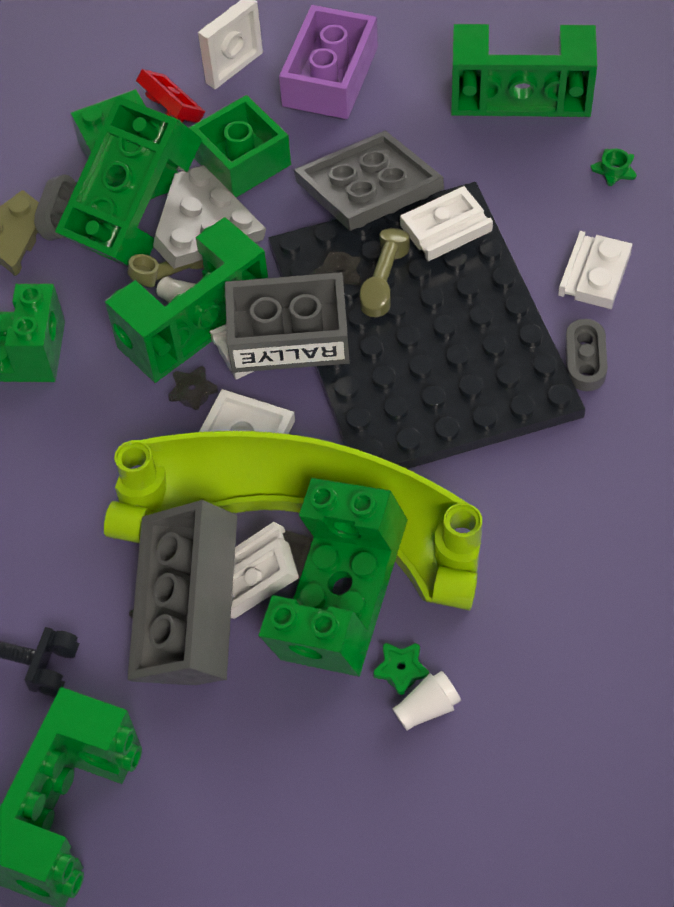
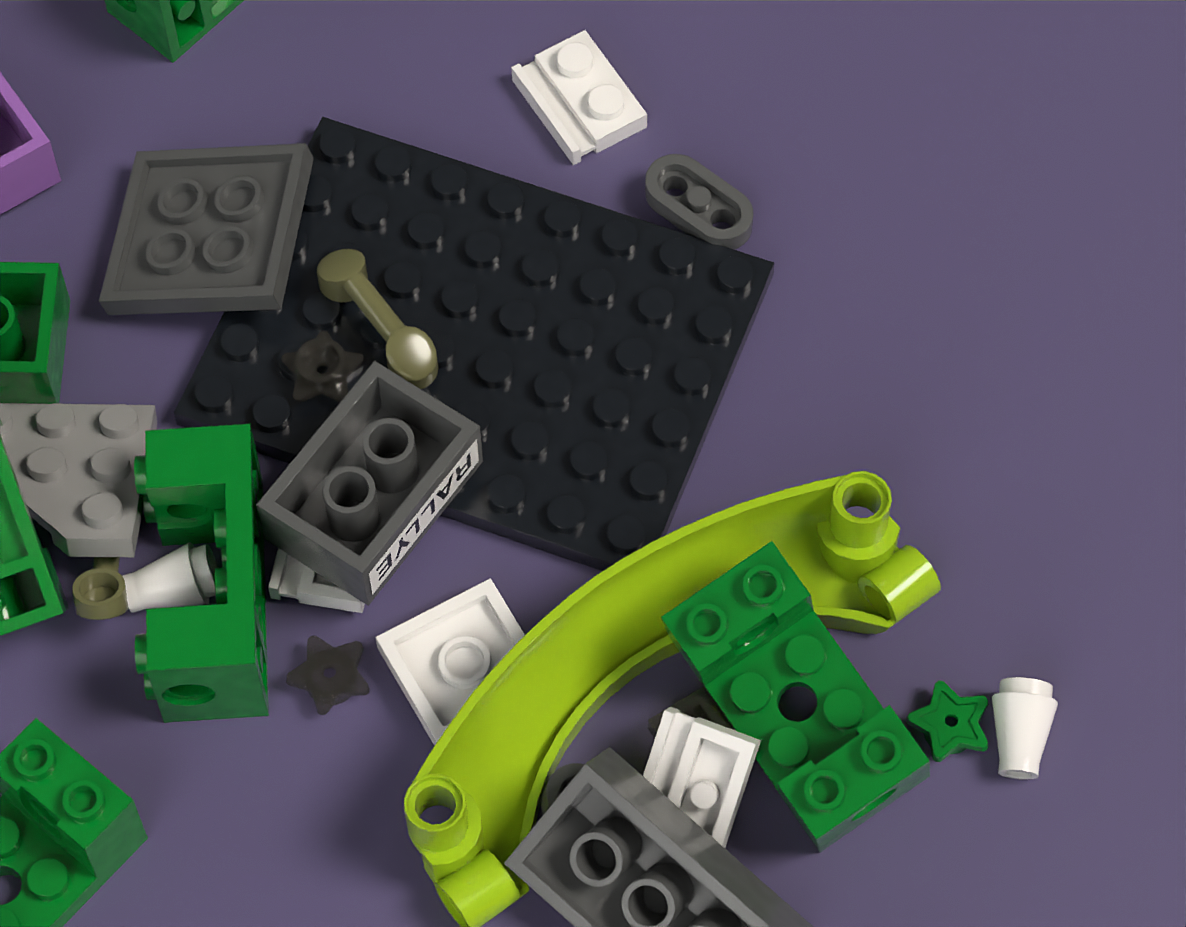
camera: 55 degrees left, 5 degrees up
(446, 223) = (375, 195): white plate -> none

